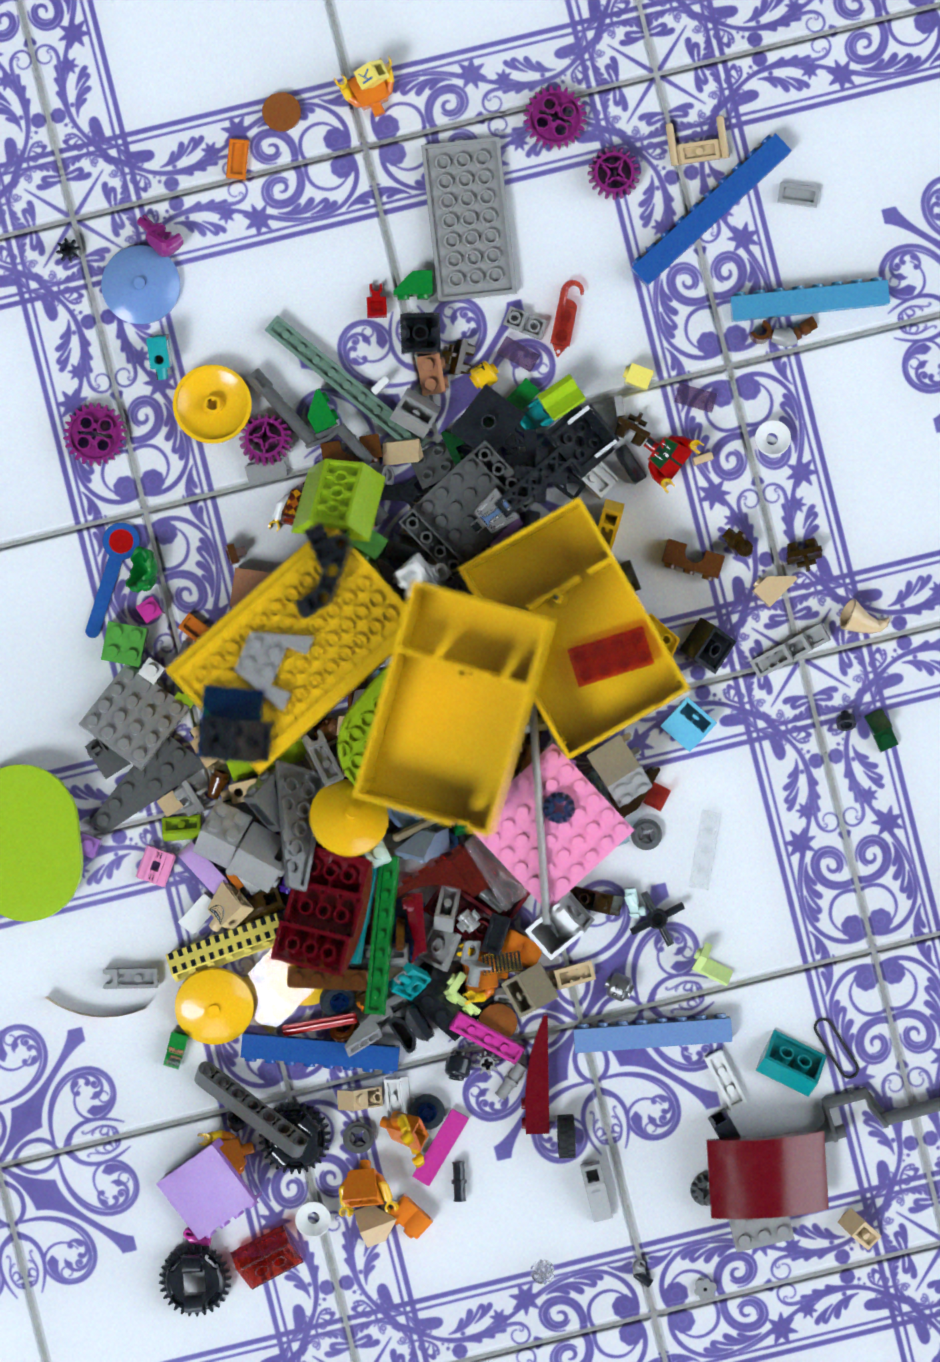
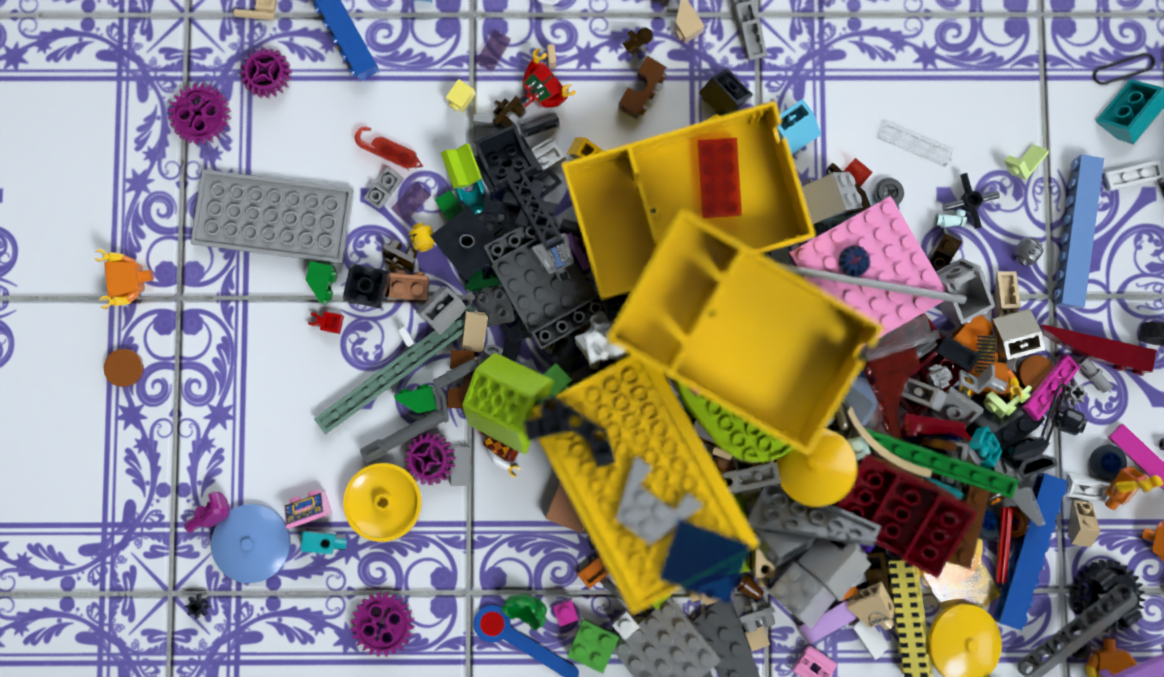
camera: 80 degrees left, 5 degrees down
(181, 827) = (783, 632): lime slope -> none
(187, 332) = (307, 509): none -> slope
(233, 553) = (531, 516): reddish brown tile -> none
(236, 739) = (723, 560): black bracket -> none
(237, 159) = (156, 420): orange tile -> none
(360, 1146) = (1127, 534): dark grey gear -> none
(371, 74) = (106, 270): light yellow brick -> none
(380, 877) = (885, 453): none -> tan sticker
(460, 1040) = (1057, 411): none -> black piece

